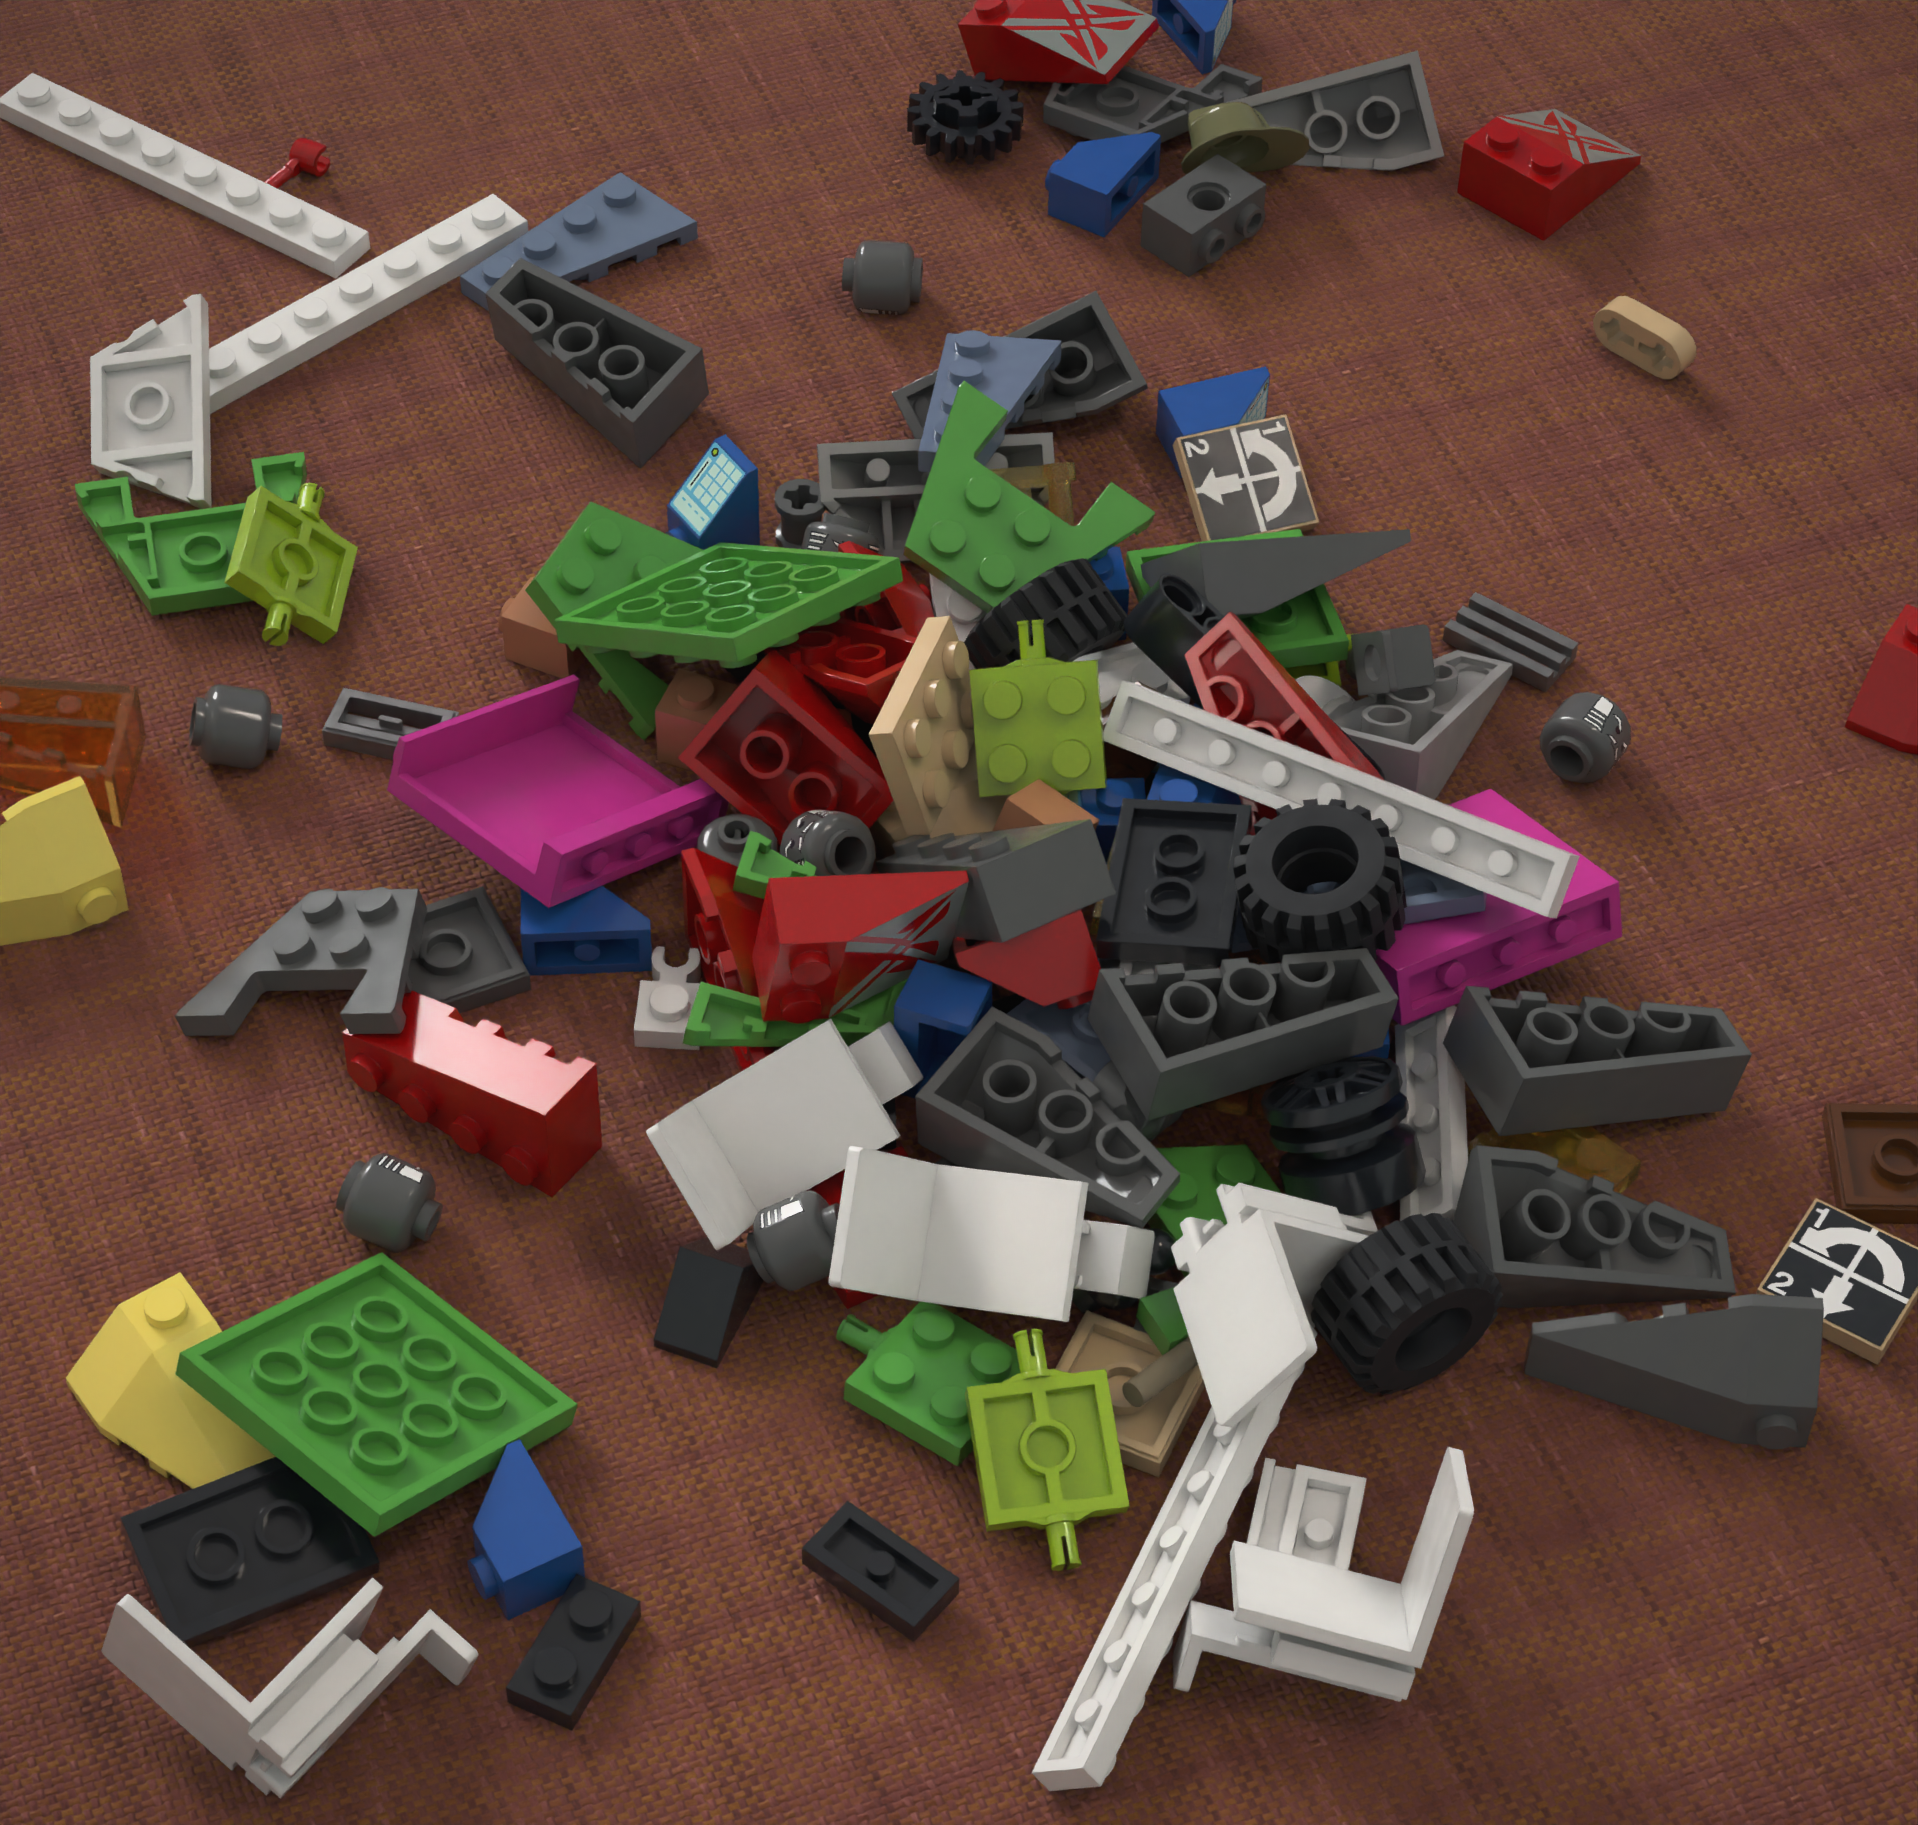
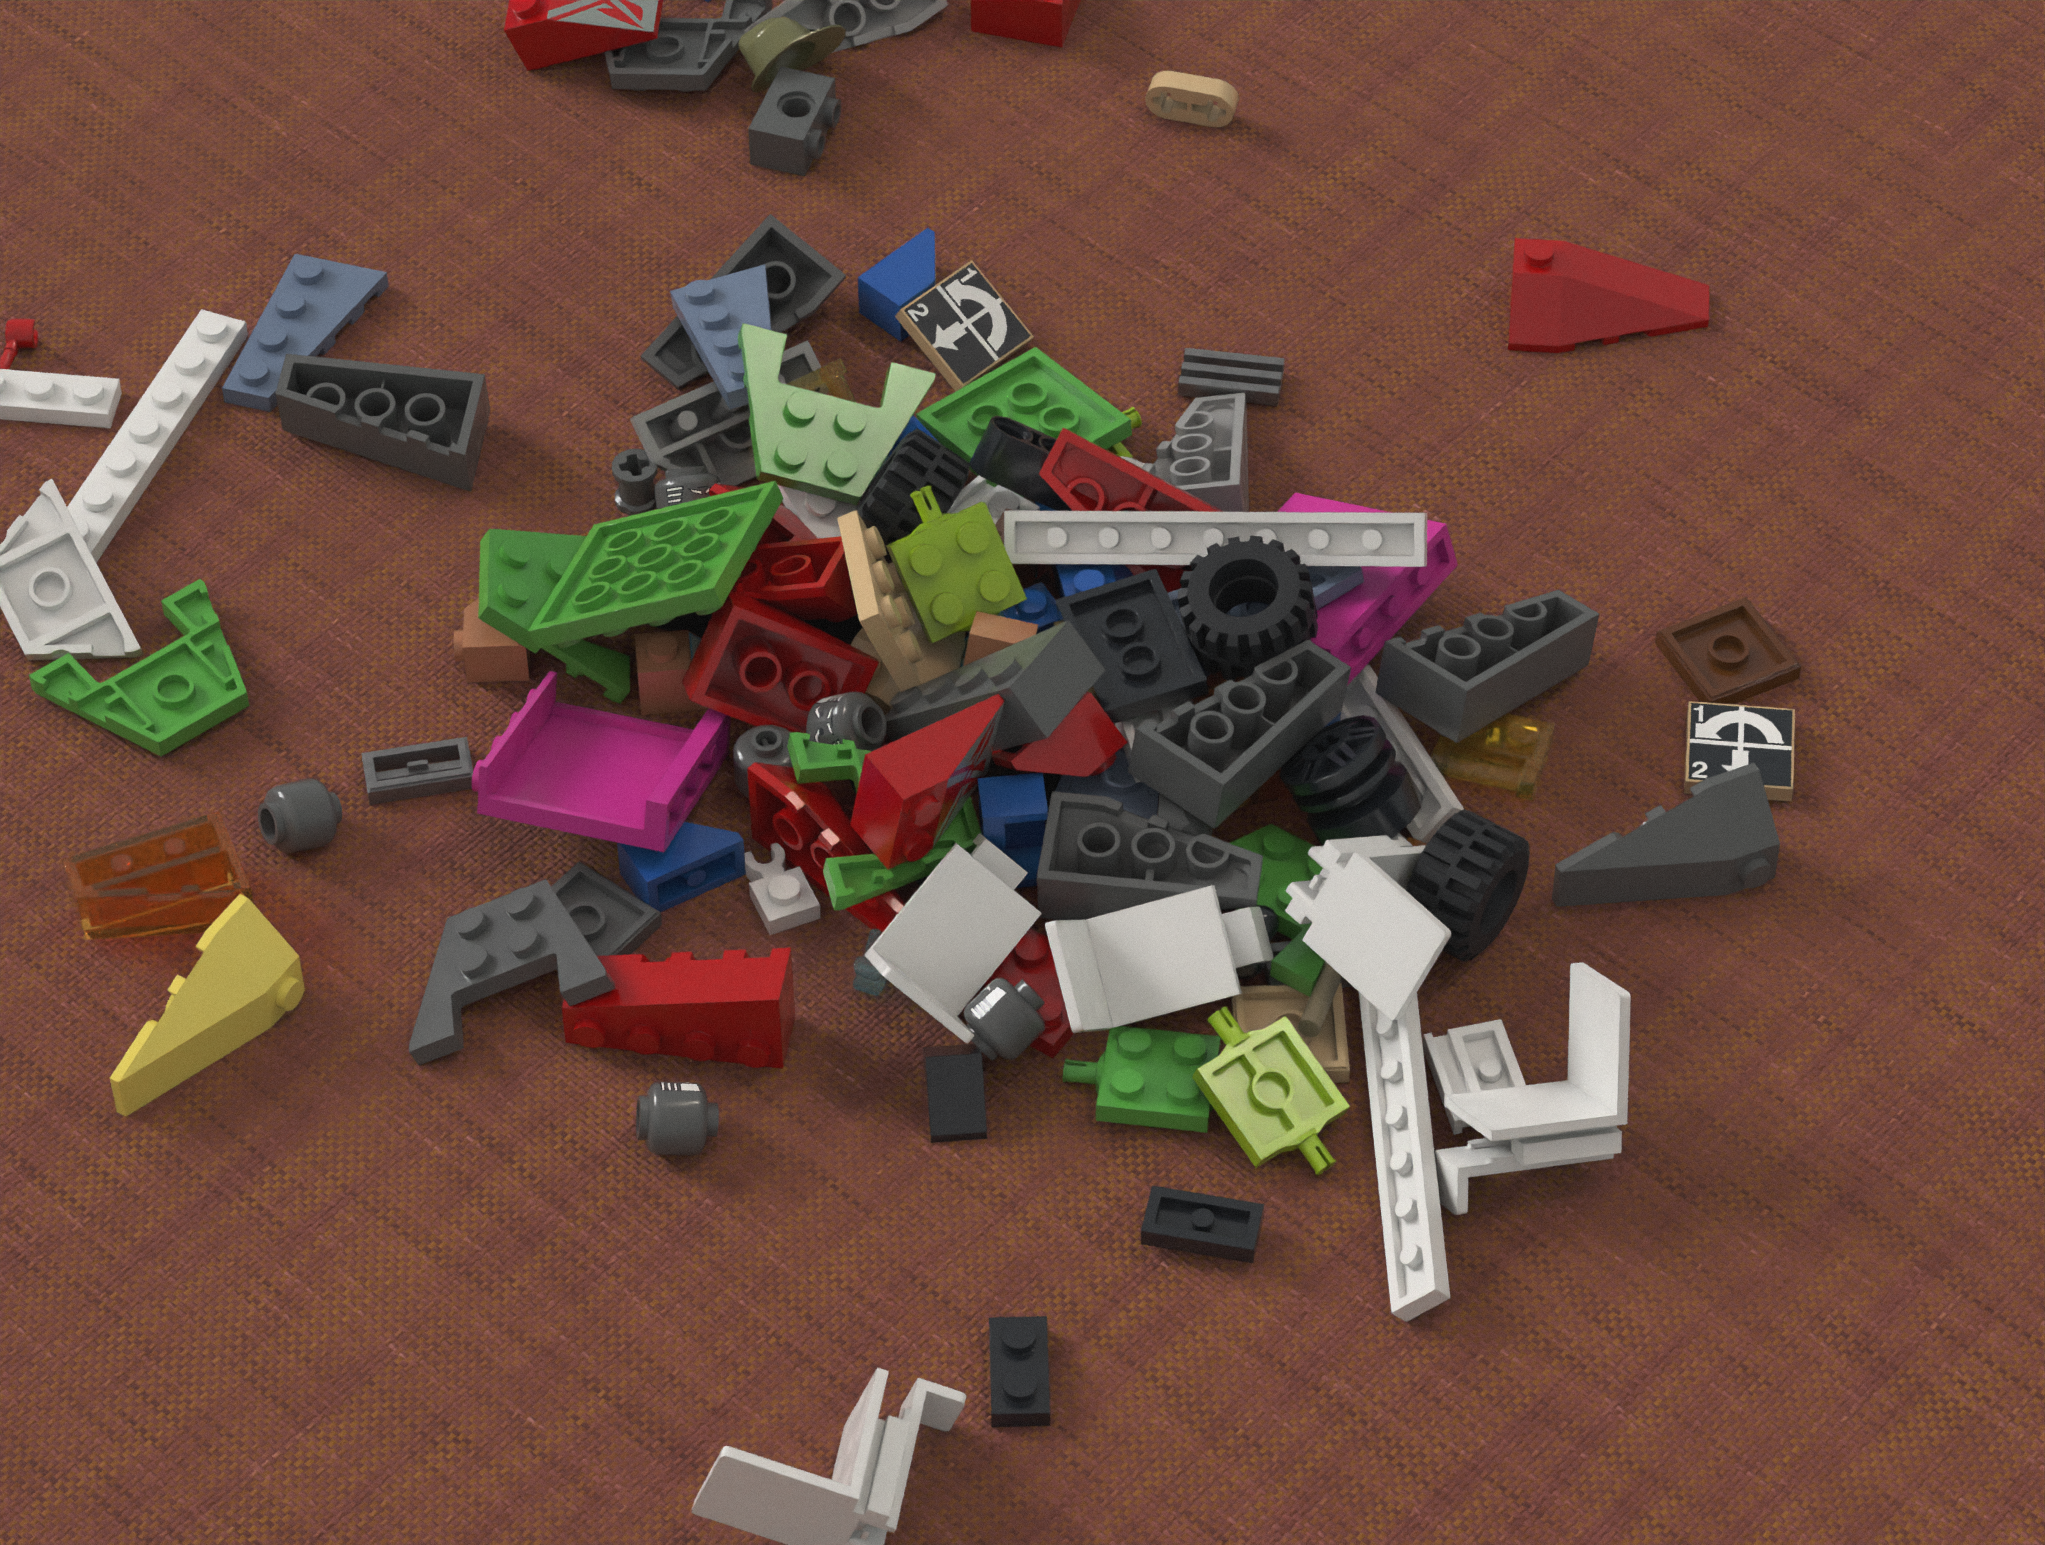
camera: 25 degrees left, 0 degrees up
(137, 1399) = (619, 1318): light yellow wedge -> none
(243, 1550) = (743, 1390): black plate -> none
(291, 564) = (260, 670): lime plate -> none
(375, 1392) = (769, 1250): bright green plate -> none
(522, 1539) = (938, 1307): blue slope -> none
(717, 499) = (573, 490): slope -> none
(883, 277) = (570, 263): dark grey head -> none
(965, 117) = (549, 106): black gear -> none
(1102, 180) = (692, 121): blue slope -> none
(1264, 573) = (1046, 392): dark grey wedge -> none
(1391, 660) = (1166, 424): dark grey bracket -> none
(1579, 1240) = (1551, 792): dark grey wedge -> none
(1585, 737) = (1335, 428): dark grey head -> none

